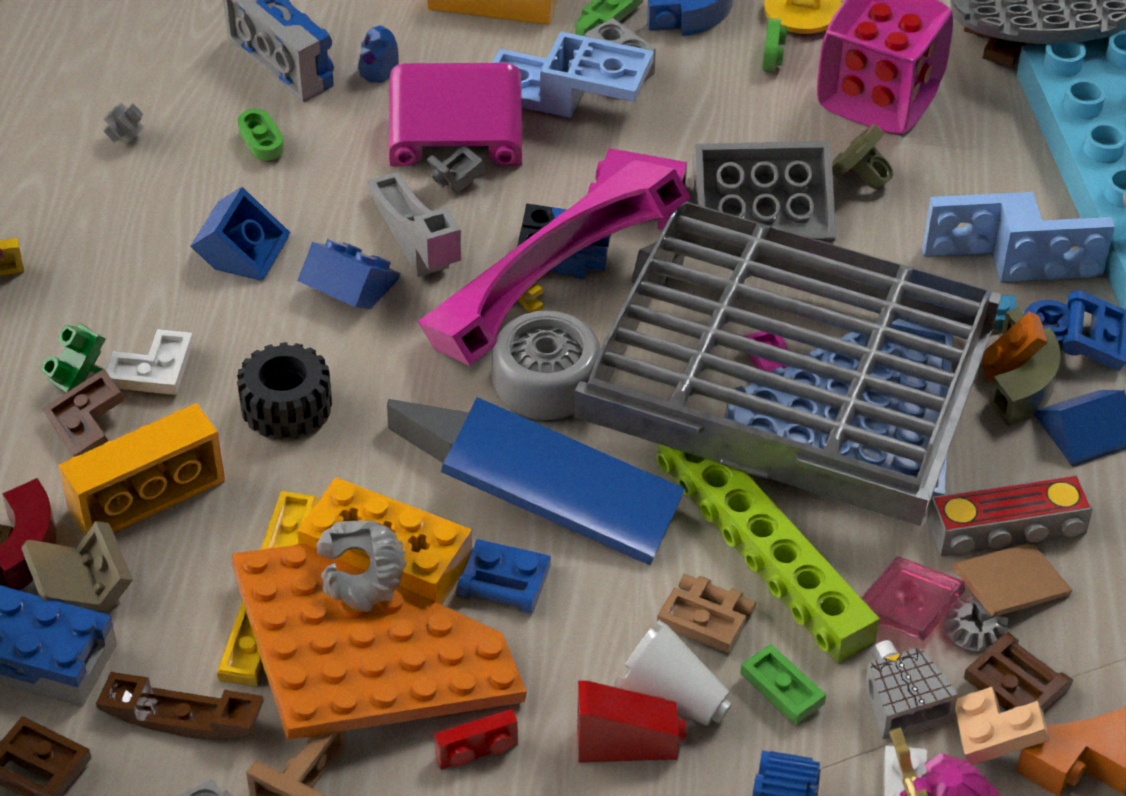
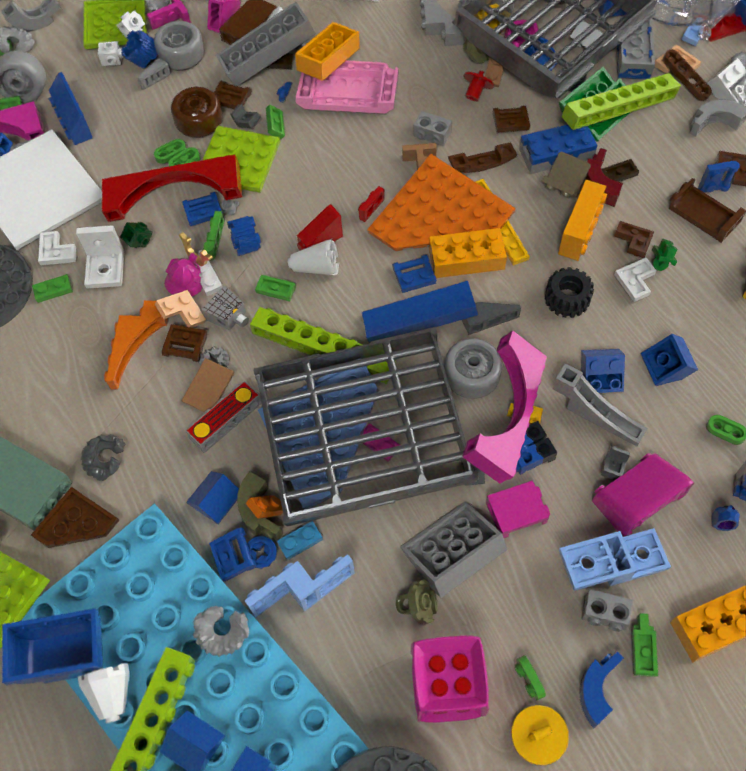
camera: 150 degrees right, 15 degrees up
(385, 565) = (455, 228): light grey piece -> none
(703, 620) = (323, 296): medium nougat plate -> none
(912, 597) = (245, 352): clear pink plate -> none

